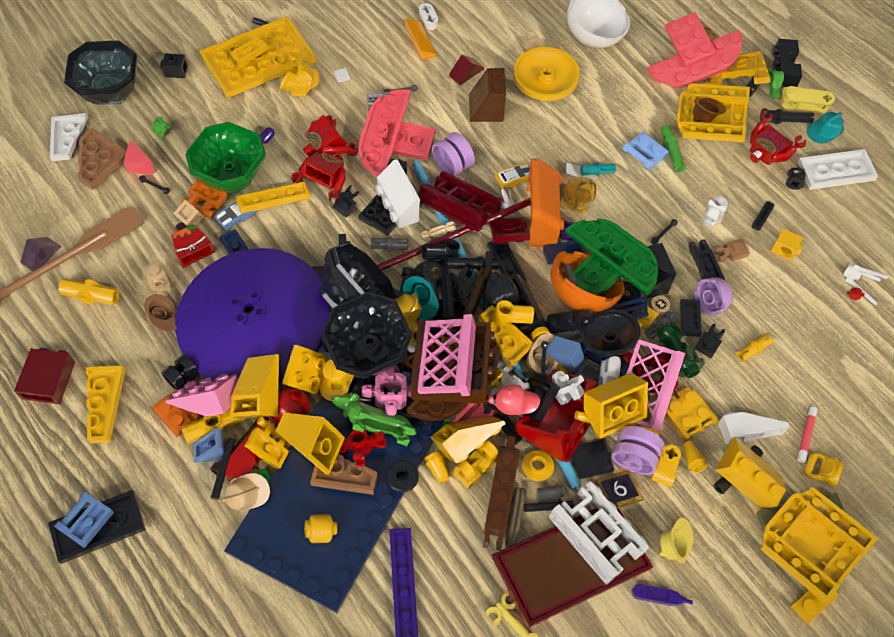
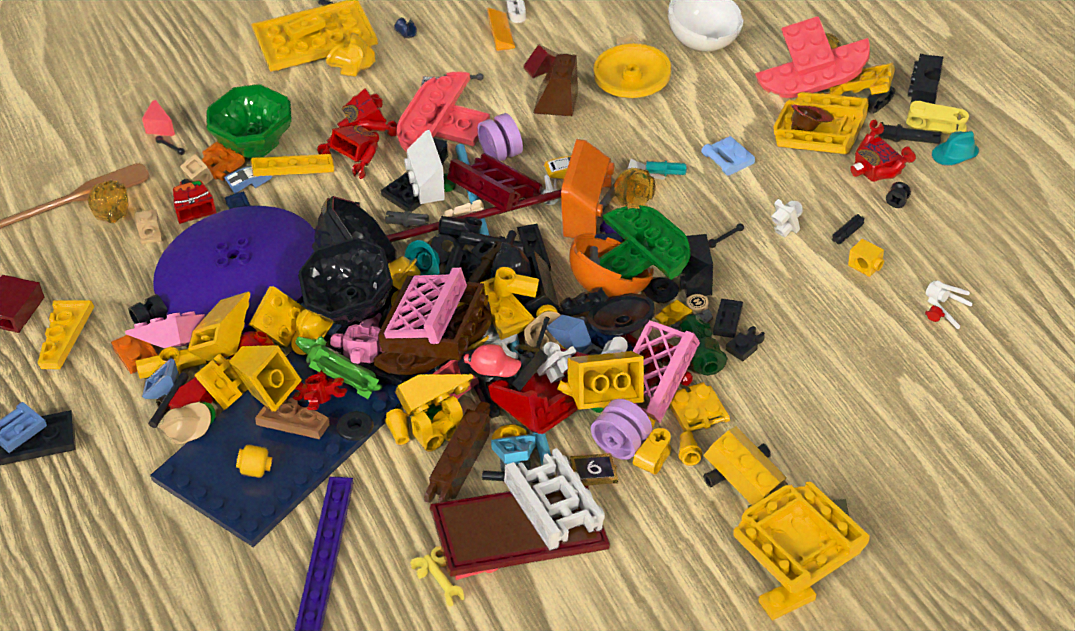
camera: 15 degrees right, 15 degrees down
(38, 252) = (32, 194): slope -> none
(65, 135) = (89, 91): white wing -> none
(89, 291) = (75, 233): yellow piece -> none
(98, 158) = (117, 115): medium nougat plate -> none
(102, 72) = (141, 34): rock -> none
(114, 255) = (108, 201): none -> clear yellow piece
(160, 127) = (189, 91): bright green plant -> none
(160, 312) = (142, 256): medium nougat piece -> none
(174, 65) = (221, 36): black brick -> none
(267, 135) = (301, 109): dark purple arm -> none
(338, 44) = (406, 30): none -> dark blue arm
(341, 75) = (402, 59): white sticker -> none
(344, 203) = (370, 176): black plate -> none
(509, 230) = (542, 215): dark red plate -> none
(515, 517) = (472, 477): dark tan axle -> none
(549, 482) = (514, 448): none -> medium azure wing
(592, 459) = (573, 439): black piece -> none
(632, 306) = (665, 300): dark blue tile -> none
(658, 595) = (608, 571): dark purple piece -> none
(670, 141) = (760, 150): bright green pin -> none
(677, 541) = (643, 520): light yellow piece -> none
(705, 260) = (764, 269): black hinge -> none
(714, 295) = (760, 296): lavender cylinder -> none
(734, 250) = (801, 259): medium nougat plate -> none
(749, 427) = (766, 426): white slope -> none
(754, 347) = (795, 353): yellow pin -> none
(776, 82) = (902, 93): bright green bar -> none
(802, 455) = (831, 442): coral bar -> none
(829, 471) = (844, 480): yellow piece -> none
(838, 169) = (954, 190): white plate -> none

